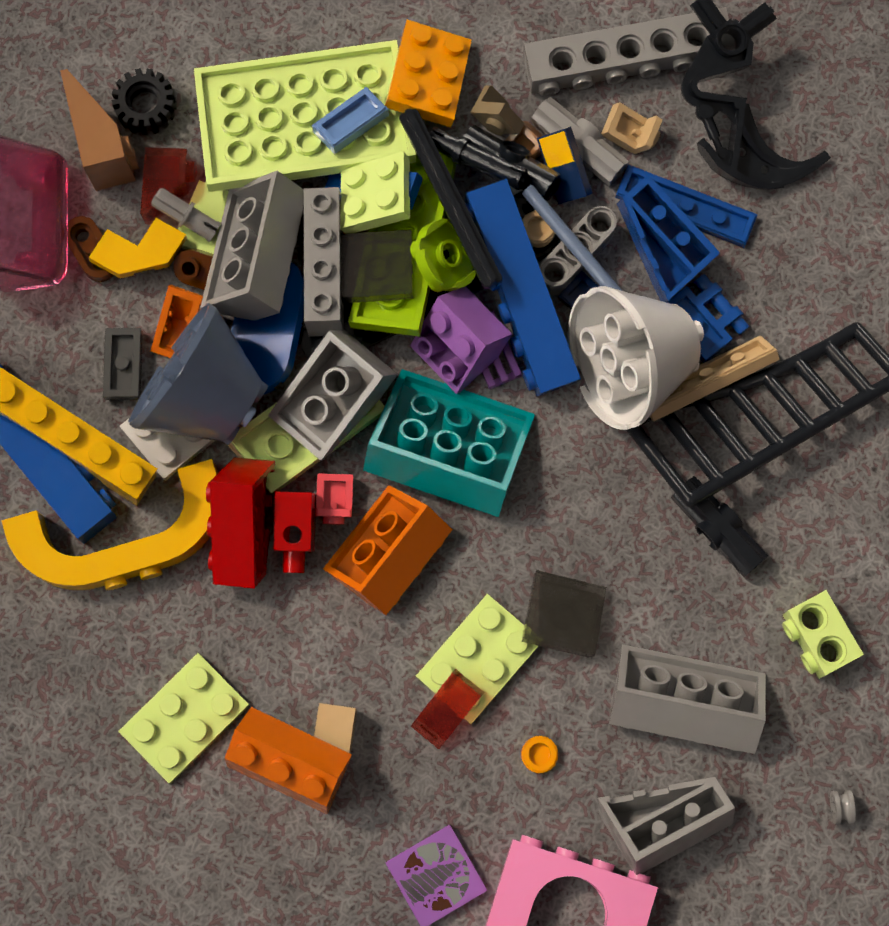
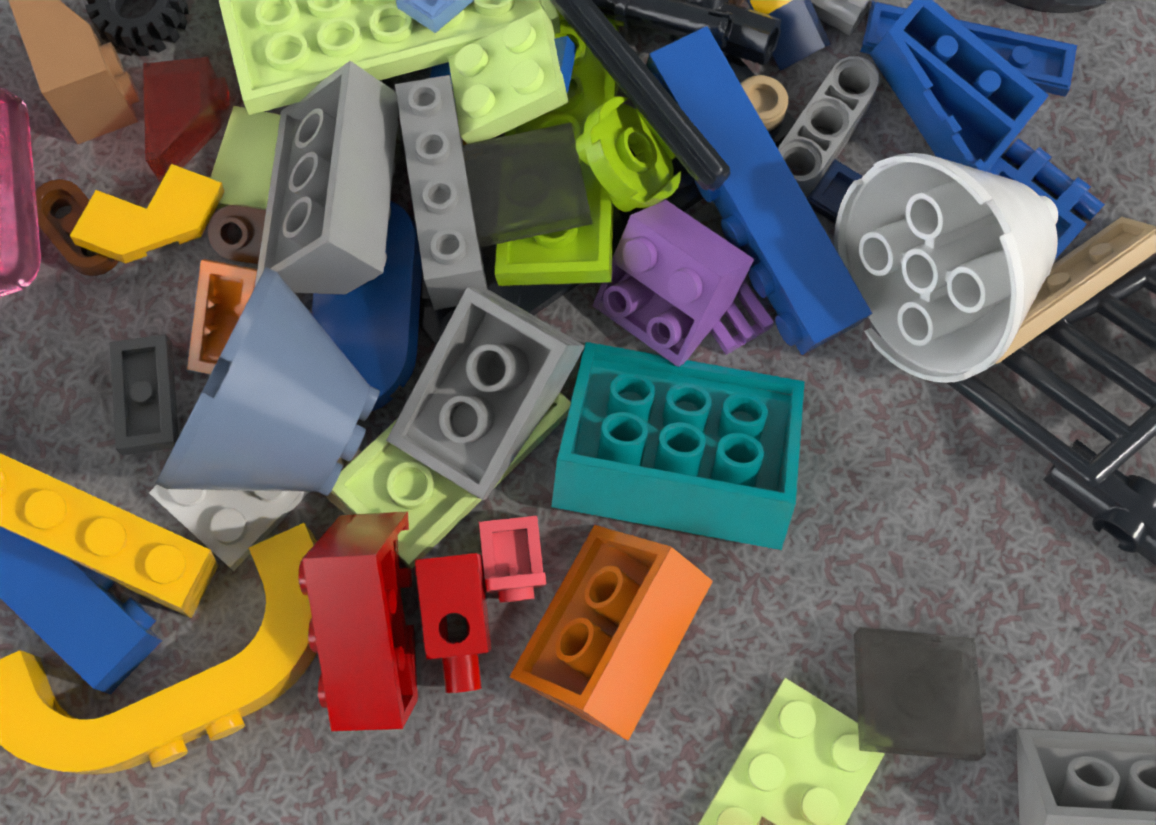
camera: 10 degrees left, 5 degrees down
(185, 214) = (215, 151): light grey axle -> none
(569, 238) = (808, 102): sand blue bar -> none

